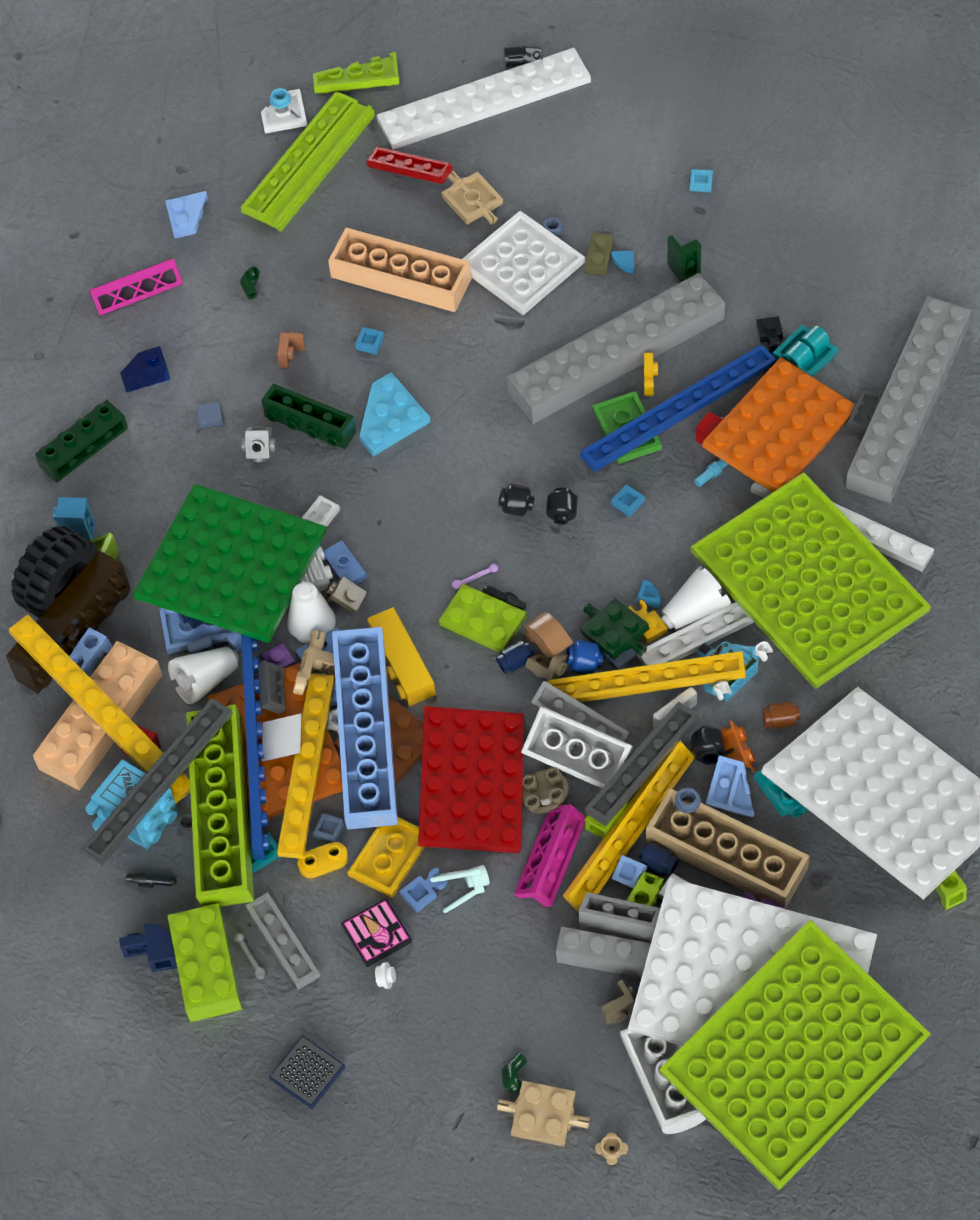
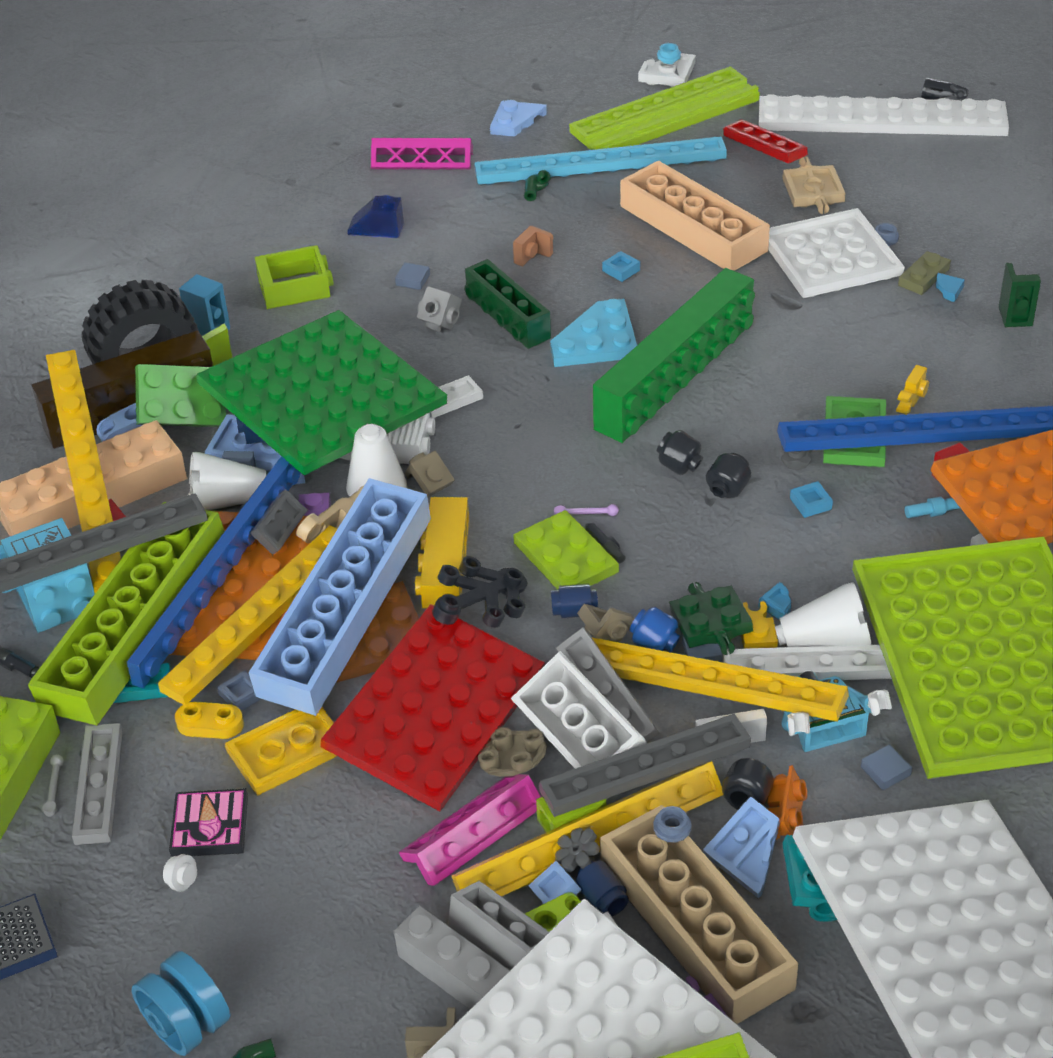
camera: 25 degrees right, 15 degrees down
(81, 441) = (236, 257): dark green brick -> none
(106, 444) = (289, 264): none -> lime window
(118, 614) = (175, 397): none -> bright green plate
(281, 737) = (252, 573): white sticker -> none
(287, 236) = (600, 160): none -> medium azure plate
(344, 563) = (451, 446): medium blue plate -> none
(357, 76) = (762, 63): lime wing -> none
(422, 892) = (290, 799): medium blue plate -> none
(455, 1059) = (181, 1003): none -> dark azure wheel
(460, 661) = (505, 581): none -> black plant
(465, 415) = (672, 355): none -> green brick
(474, 877) = (363, 811): light aqua plant -> none
(547, 635) = (622, 587): medium nougat brick -> none
(615, 348) = (888, 353): light grey brick -> none
(631, 841) = (577, 849): none -> dark grey plant
(780, 715) = (864, 790): dark orange brick -> none
(783, 690) = (886, 767): none -> sand blue tile

